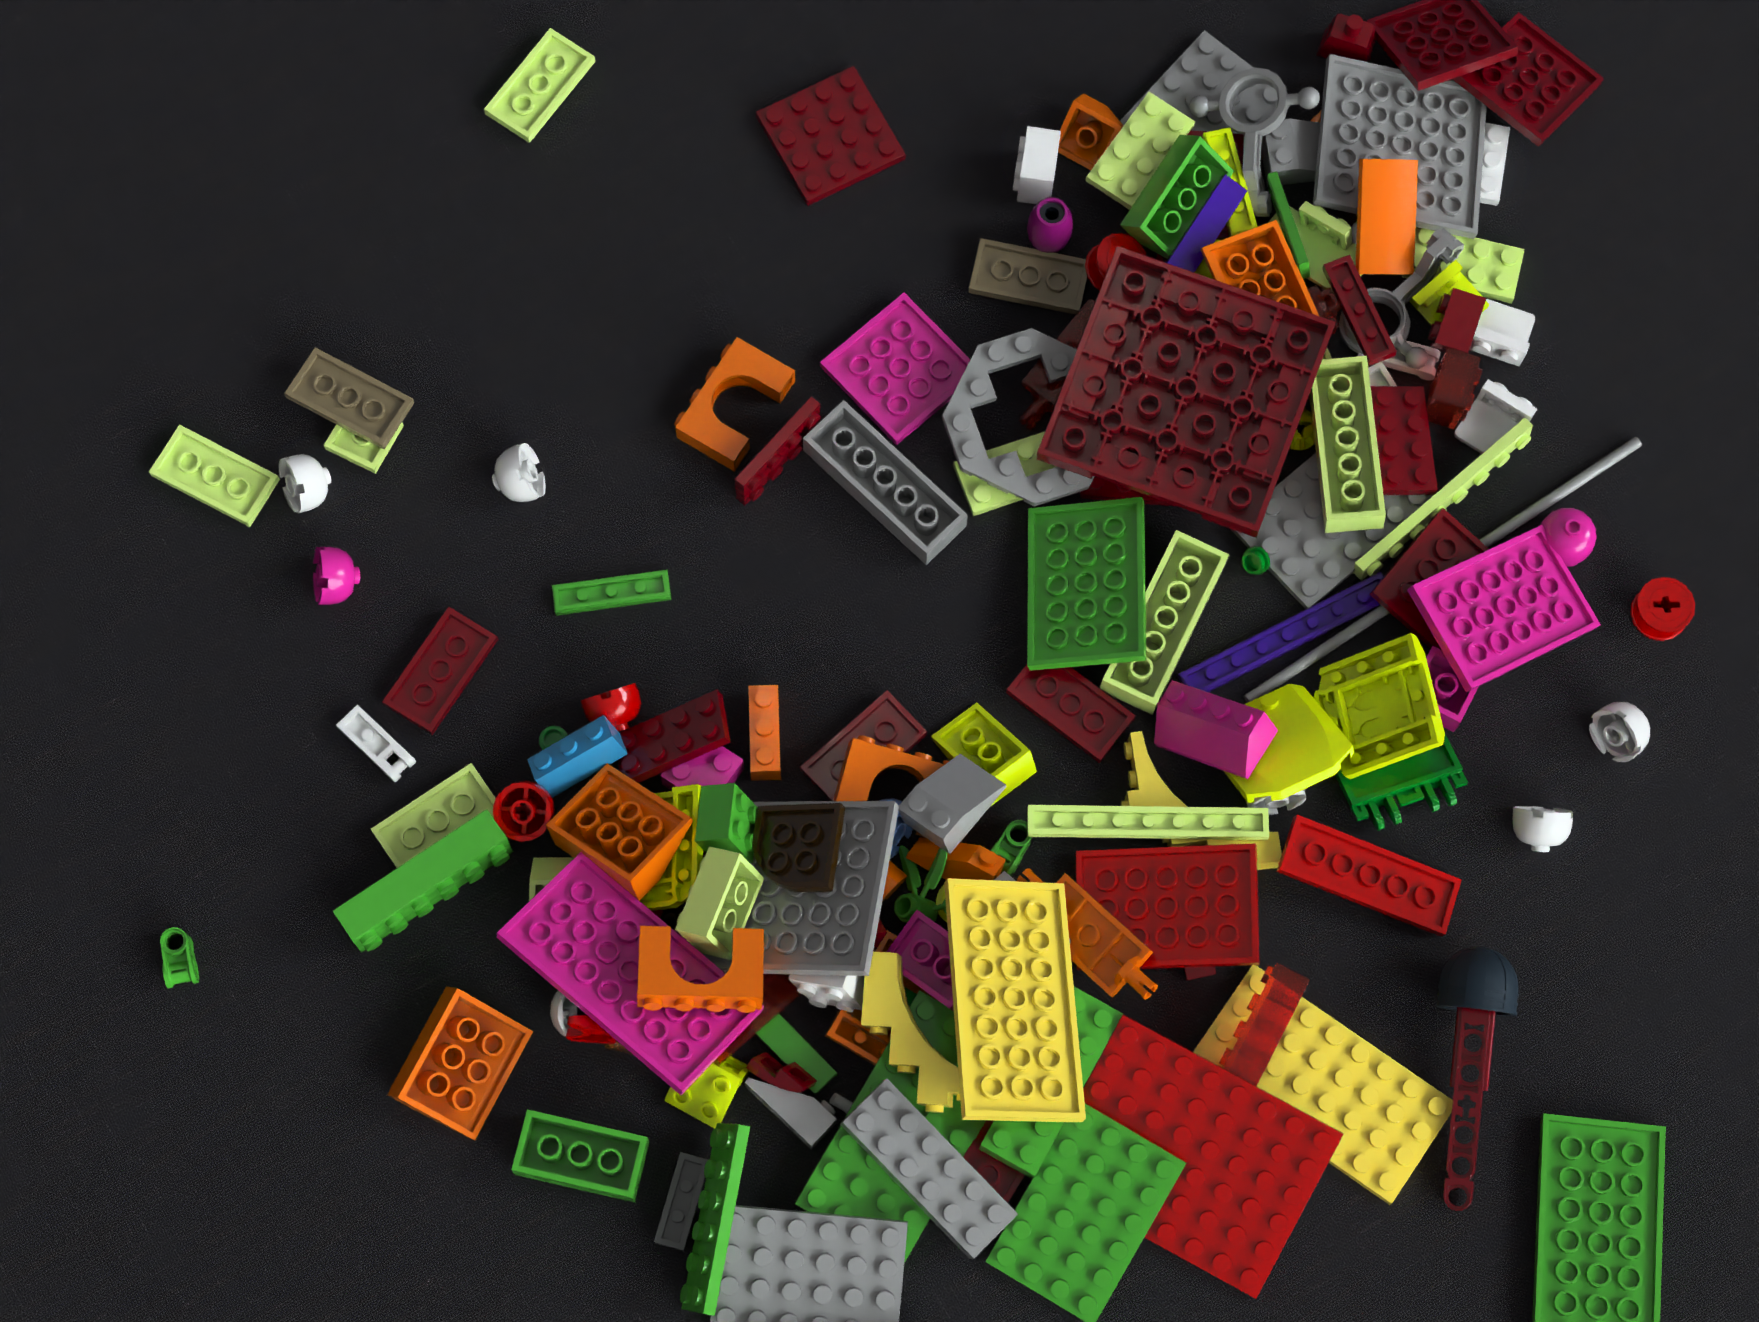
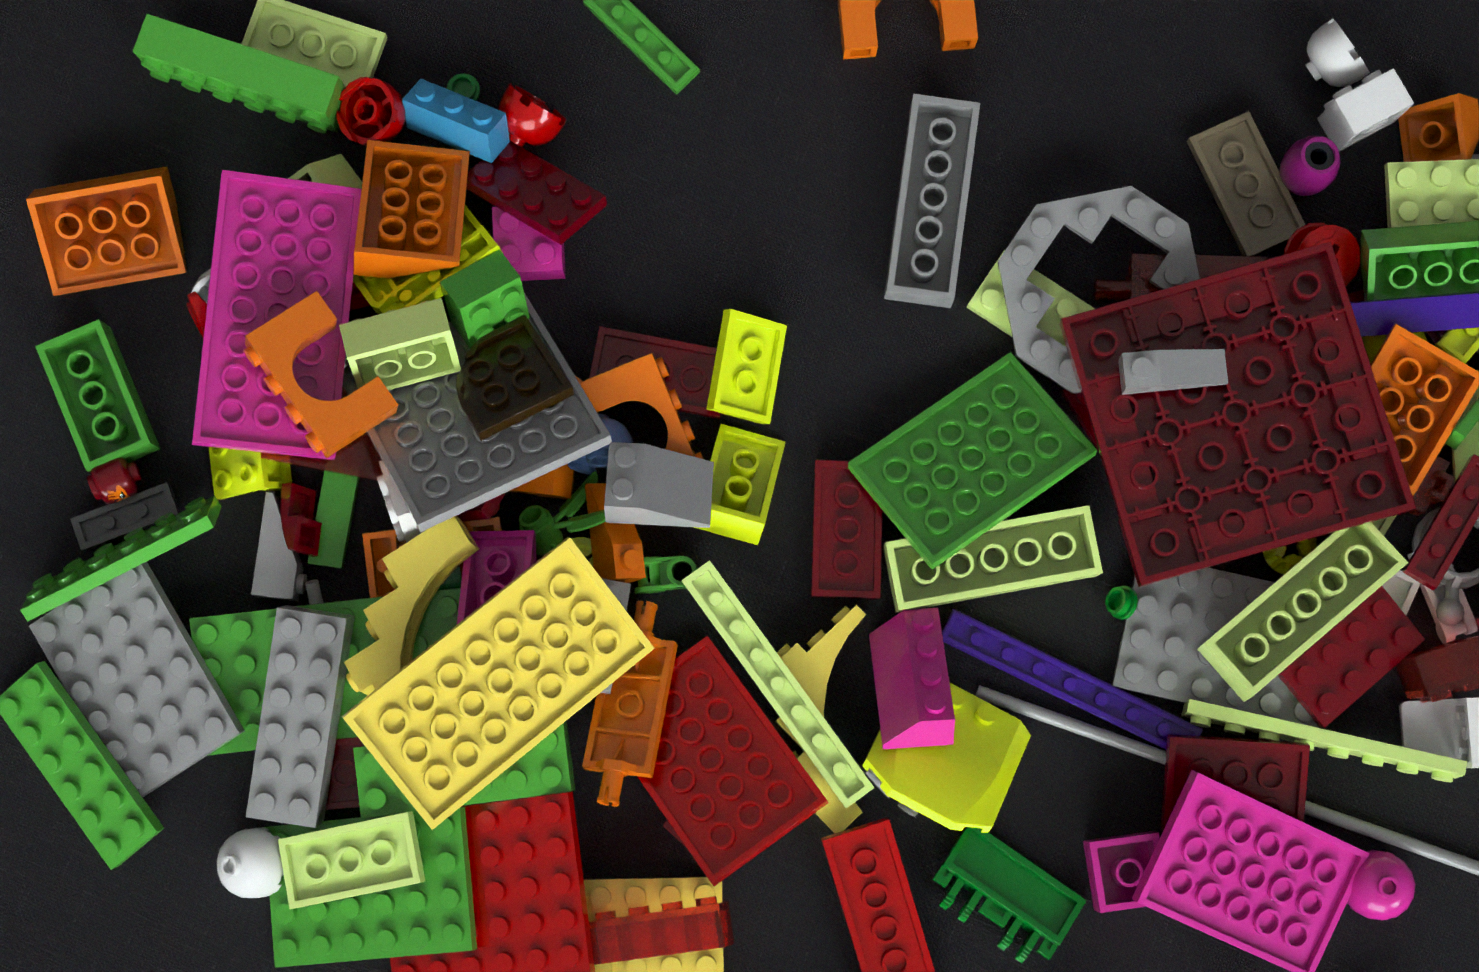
camera: 55 degrees right, 10 degrees up
(652, 1186) = (114, 480): none -> dark red head
(764, 732) = (608, 270): orange brick -> none
(780, 448) = (883, 81): dark red plate -> none
(898, 368) = (1058, 130): dark pink plate -> none
(906, 687) = (746, 366): none -> neon yellow plate
(985, 158) = (1334, 56): none -> white cylinder
(1007, 1284) = (250, 863): none -> white cylinder
(1060, 1205) = (351, 860): none -> yellowish green plate
(1127, 406) = (1171, 370): none -> light grey slope
(1382, 704) = (1060, 825): neon yellow wedge -> none

